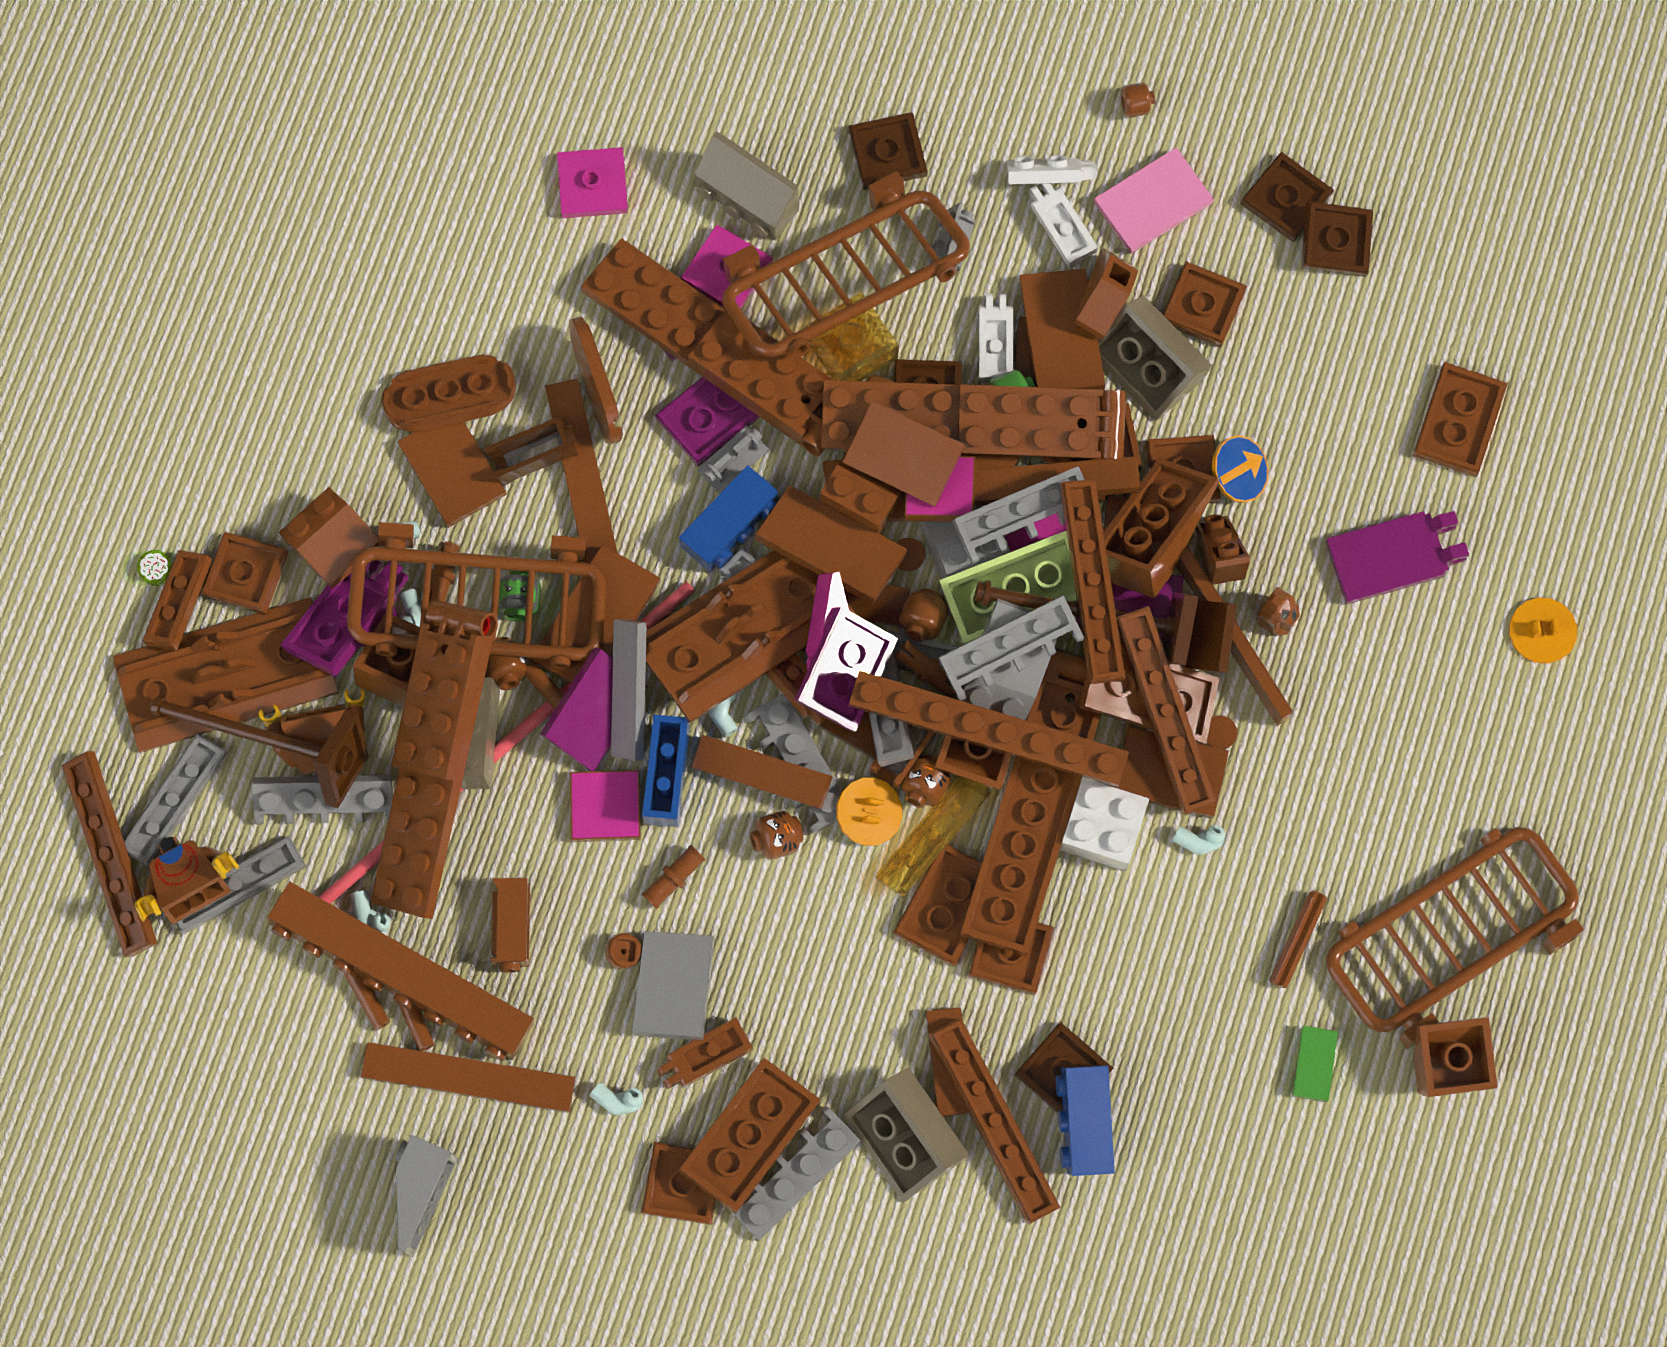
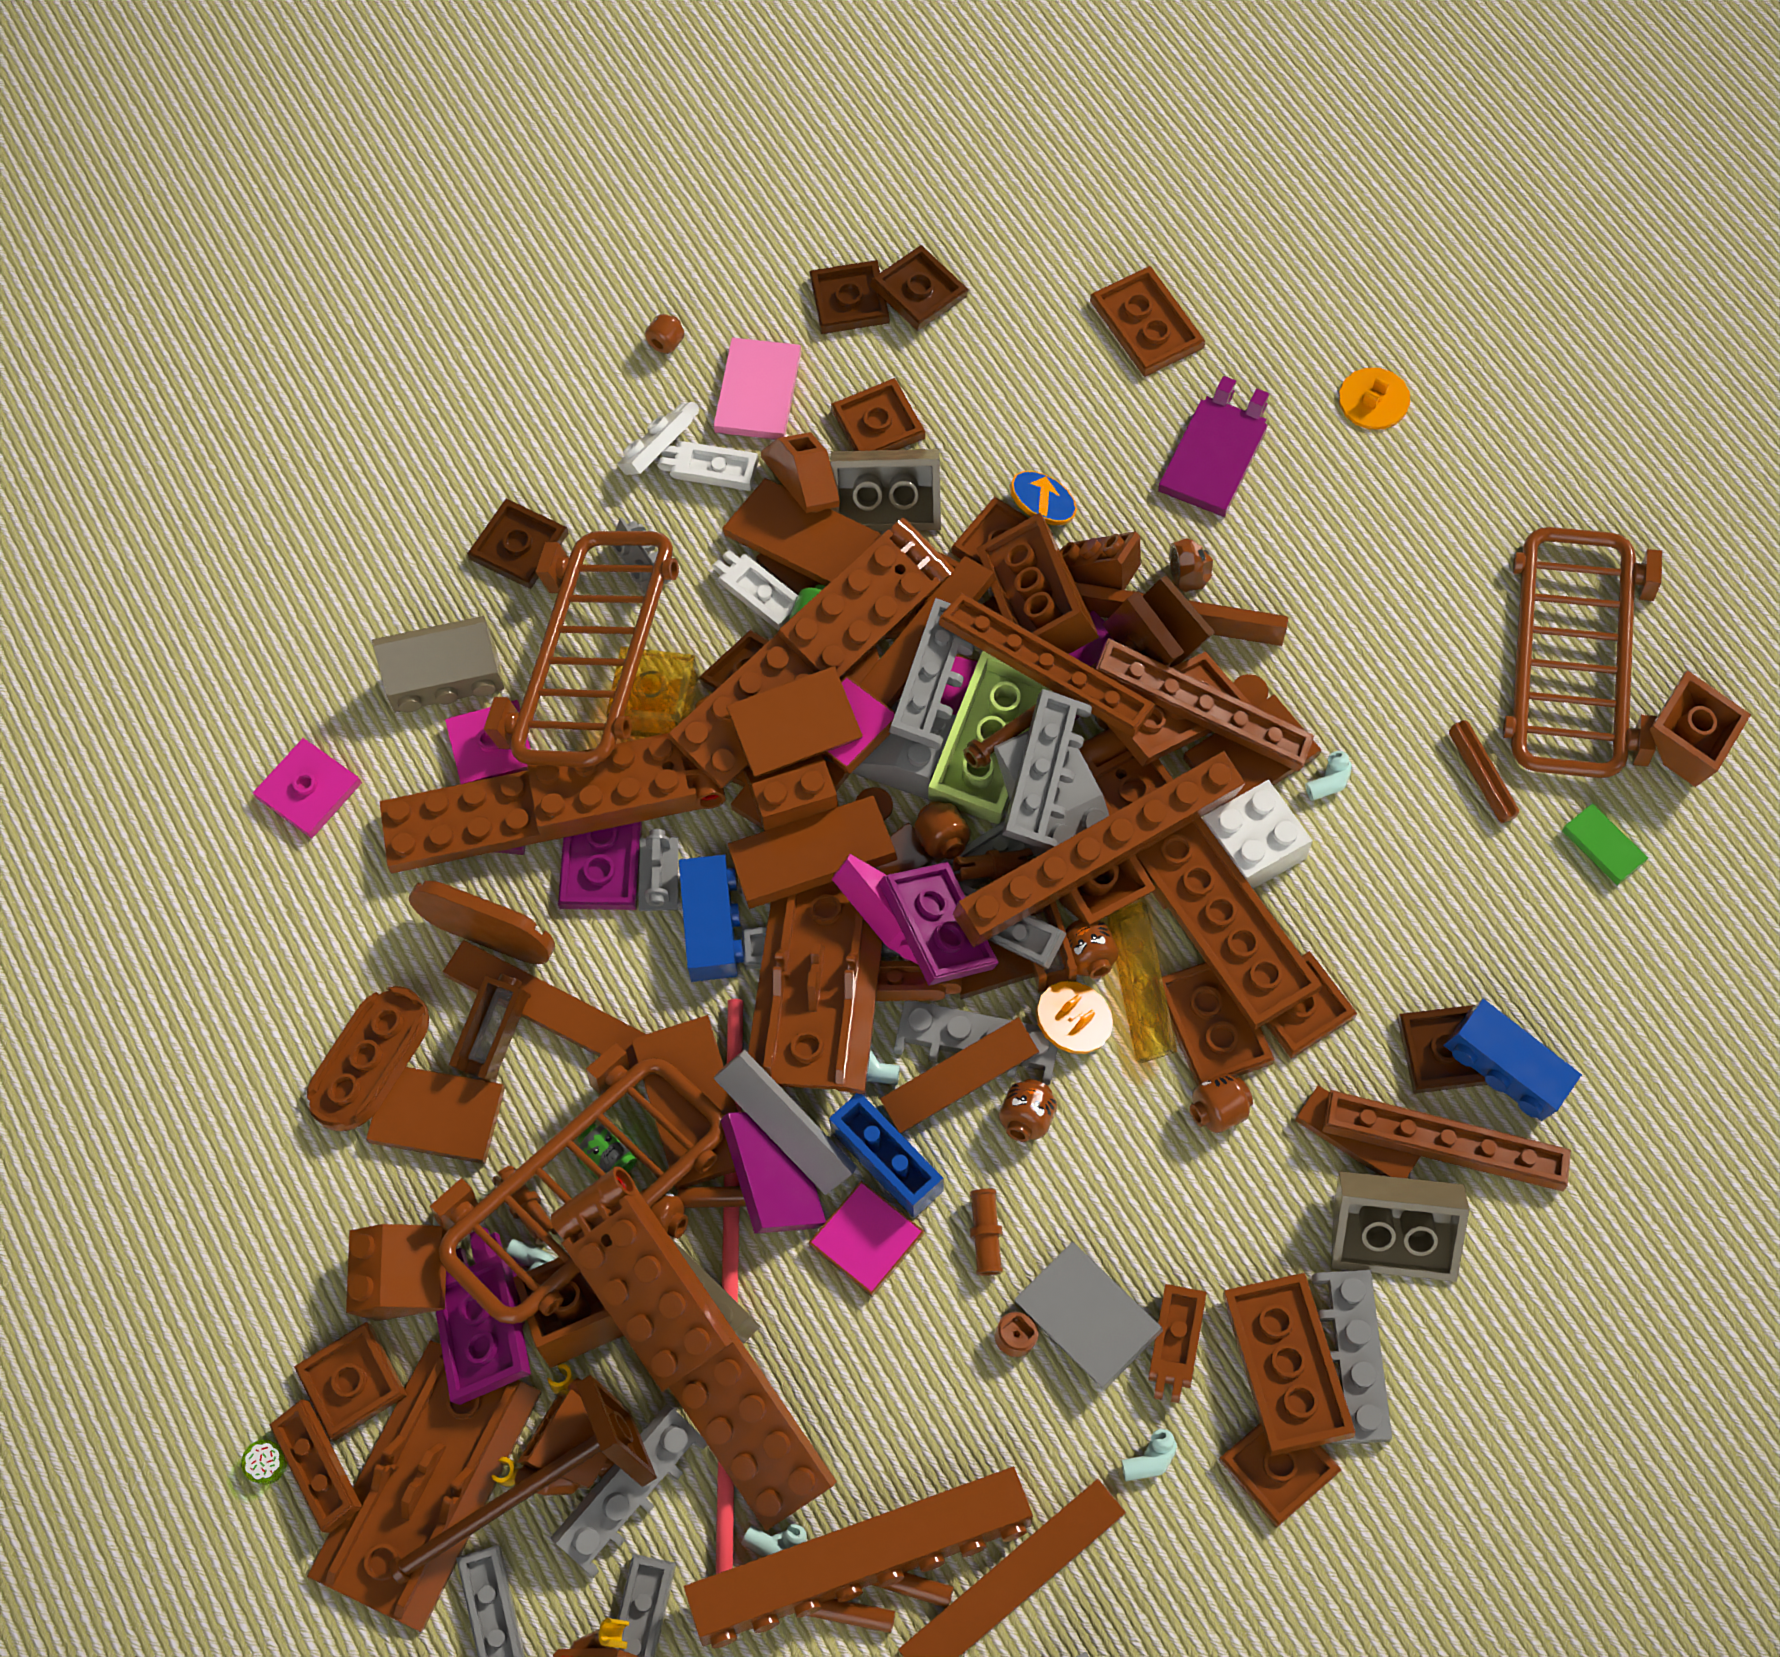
camera: 45 degrees left, 10 degrees down
(510, 924) = (903, 1414): dark orange window -> none
(891, 954) = (1221, 1103): none -> dark orange head

